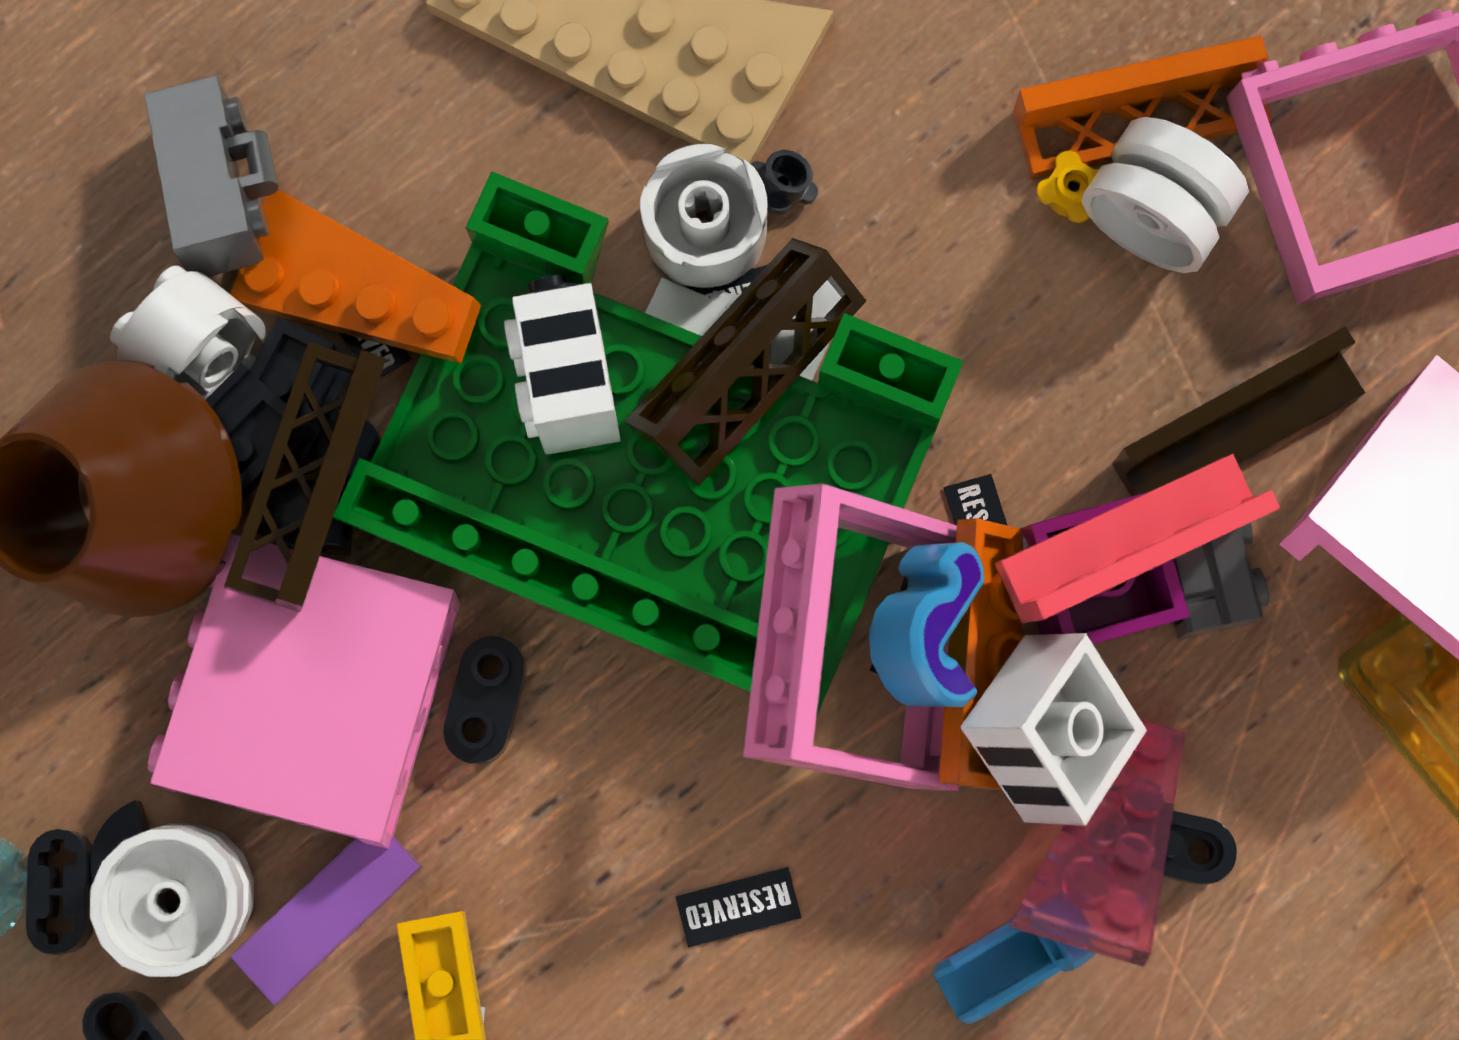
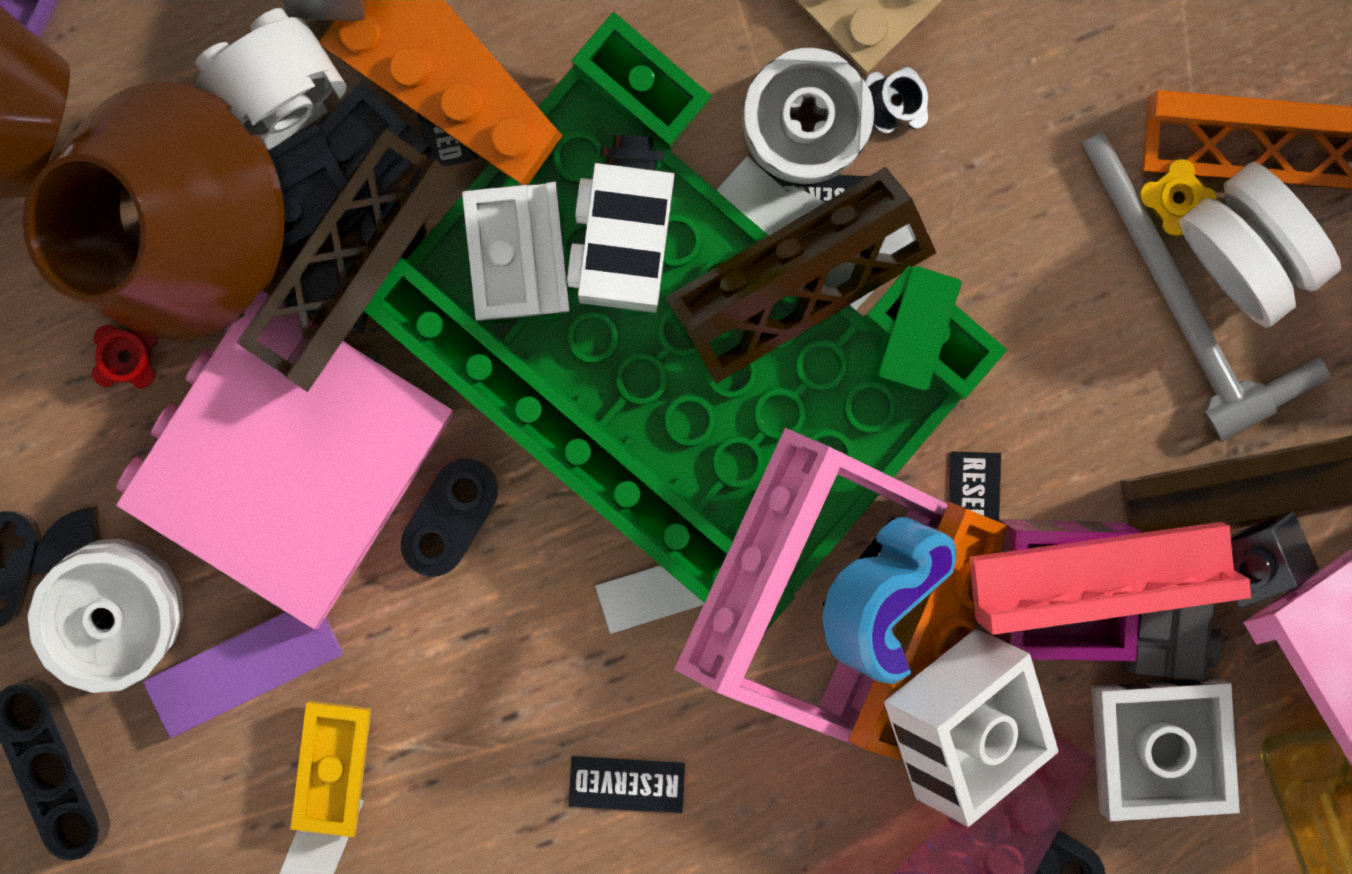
camera: 15 degrees right, 10 degrees up
(108, 641) = (111, 369): none -> red plate
(468, 422) = (515, 251): none -> white plate
(699, 717) = (643, 598): none -> white sticker
(874, 367) = (920, 328): none -> green sticker
(1194, 356) = (1235, 403): none -> light grey bar
(1248, 695) = (1165, 749): none -> white brick
(1291, 478) = (1272, 557): none -> black brick

